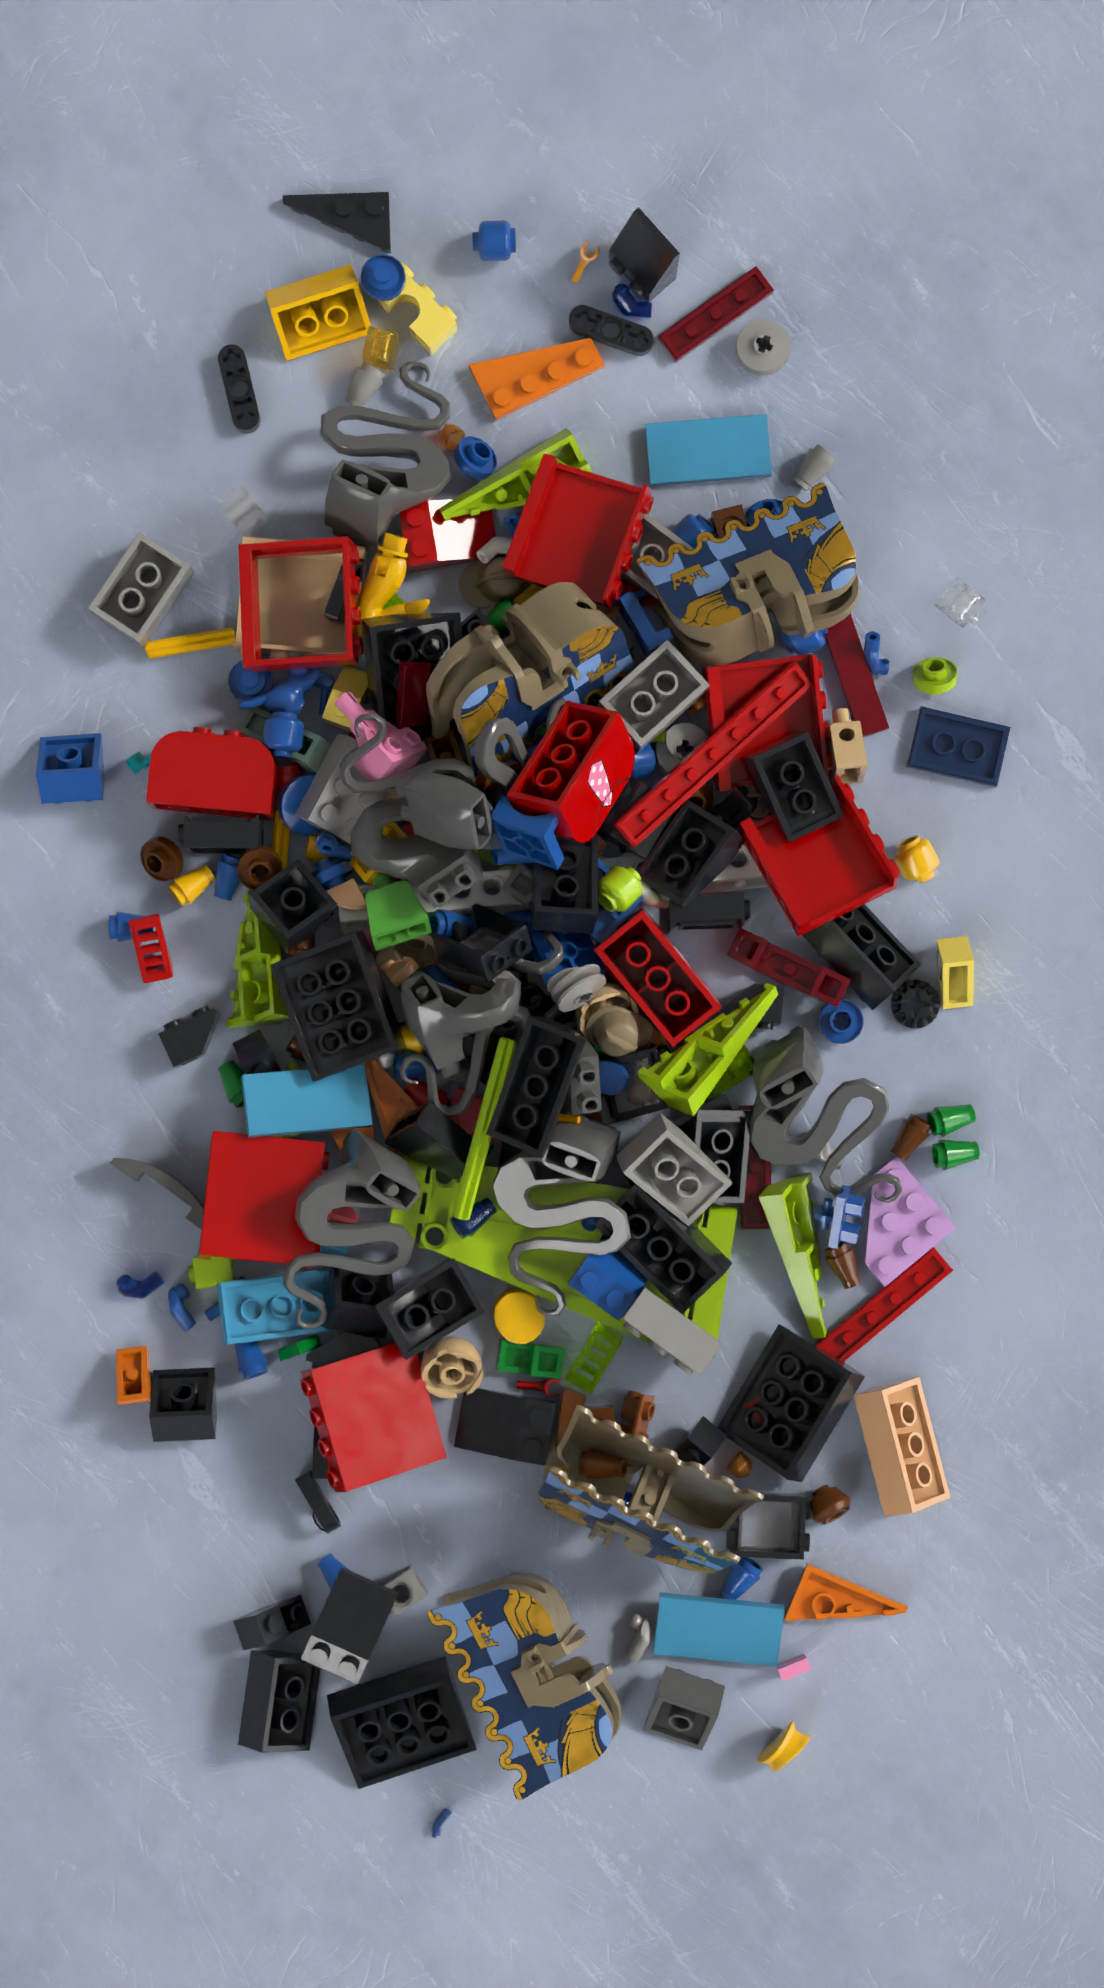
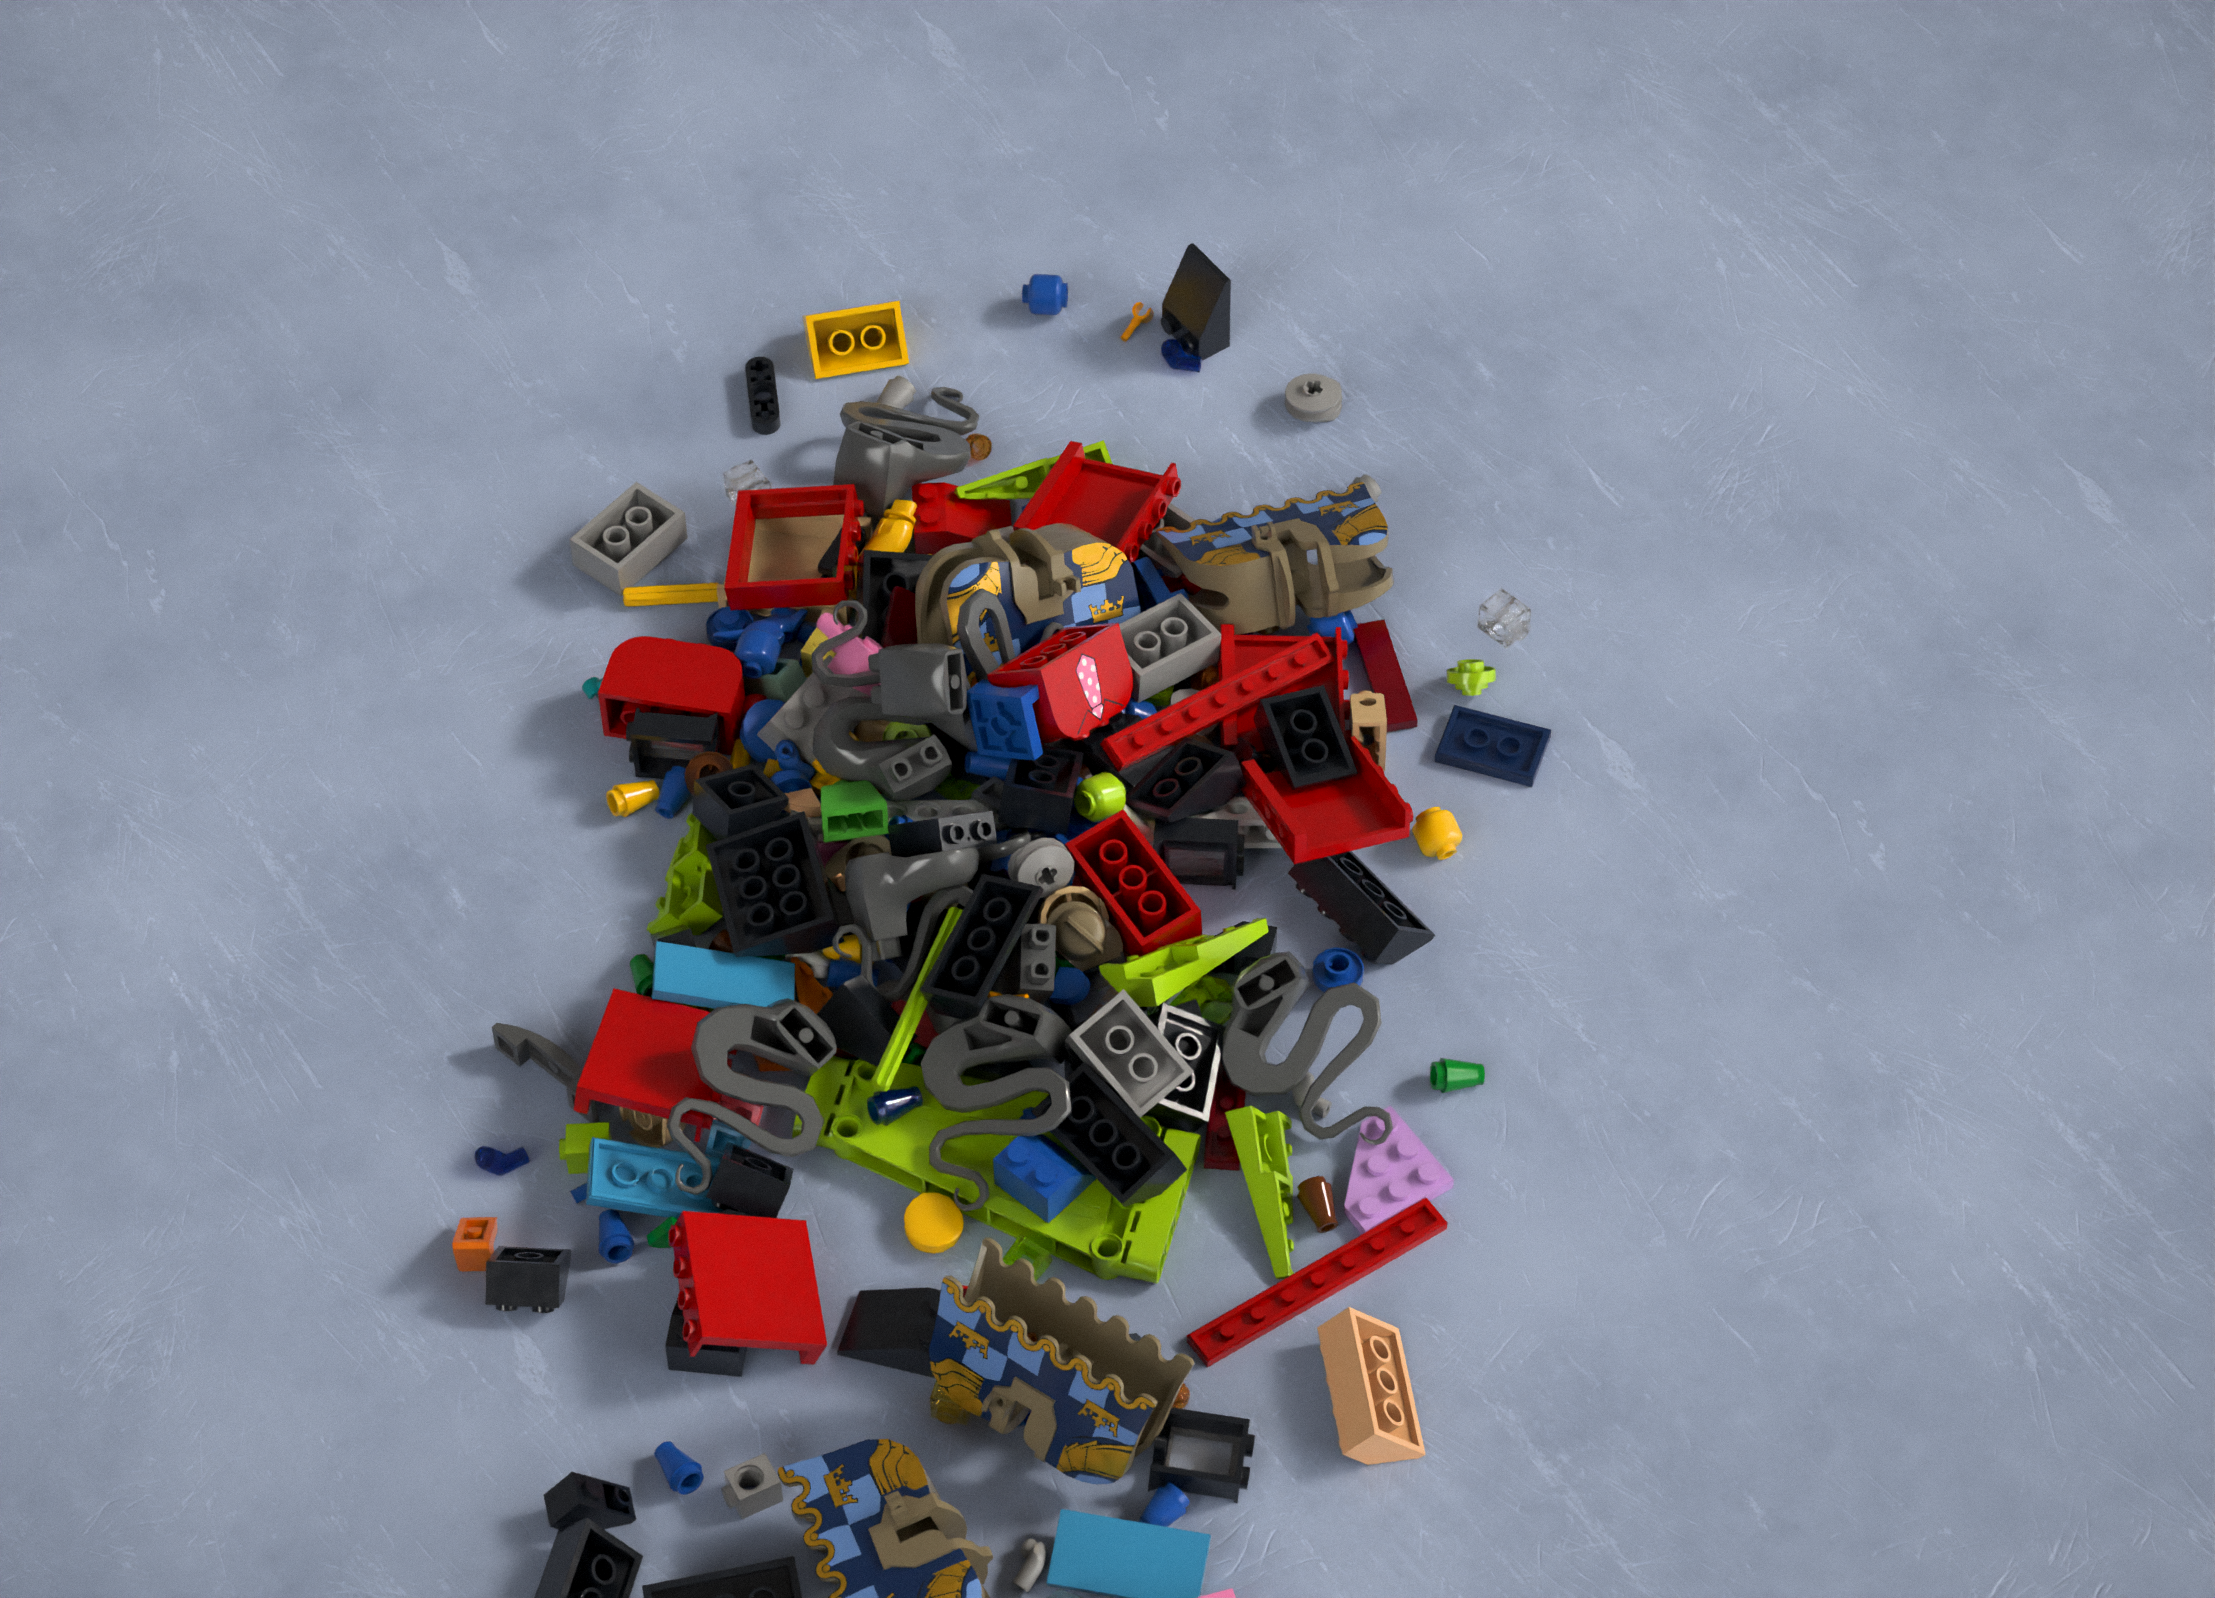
camera: 10 degrees right, 35 degrees down
(70, 768) = (521, 688): blue slope -> none
(120, 928) = (557, 827): blue cone -> none
(155, 967) = (578, 869): red slope -> none
(161, 858) = (604, 767): reddish brown plate -> none
(177, 1308) = (540, 1185): blue arm -> none
(191, 1038) = (605, 929): black slope -> none
(318, 1502) = (667, 1386): black piece -> none
(349, 1625) = (683, 1503): black slope -> none
(358, 214) = (900, 270): black wing -> none
(381, 348) = (917, 365): clear yellow brick -> none
(383, 277) = (925, 302): blue plate -> none
(429, 1308) = (833, 1187): black slope -> none
(434, 322) = (970, 354): light yellow arch -> none
(451, 1368) = (846, 1273): tan cylinder -> none
(475, 457) = (996, 458): blue plate -> none
(529, 376) = (1065, 408): orange wing -> none
(530, 1359) = (928, 1268): green slope -> none
(592, 314) = (1135, 370): black beam -> none
(670, 1332) = (1106, 1217): light grey brick -> none
(708, 450) = (1245, 478): dark azure tile -> none
(715, 314) = (1267, 373): dark red tile -> none
(788, 968) = (1294, 928): dark red slope -> none
(805, 1394) = (1254, 1326): black slope -> none
(826, 1596) = (1271, 1540): orange wing -> none
(829, 1504) = (1278, 1441): reddish brown cone -> none
(845, 1205) = (1314, 1146): blue hips -> none
(871, 652) = (1404, 654): blue arm -> none
(904, 1014) = (1438, 974): black gear -> none
(910, 1136) = (1409, 1086): reddish brown cone -> none
(953, 1153) = (1457, 1107): green cone -> none
(955, 972) = (1472, 940): light yellow slope -> none

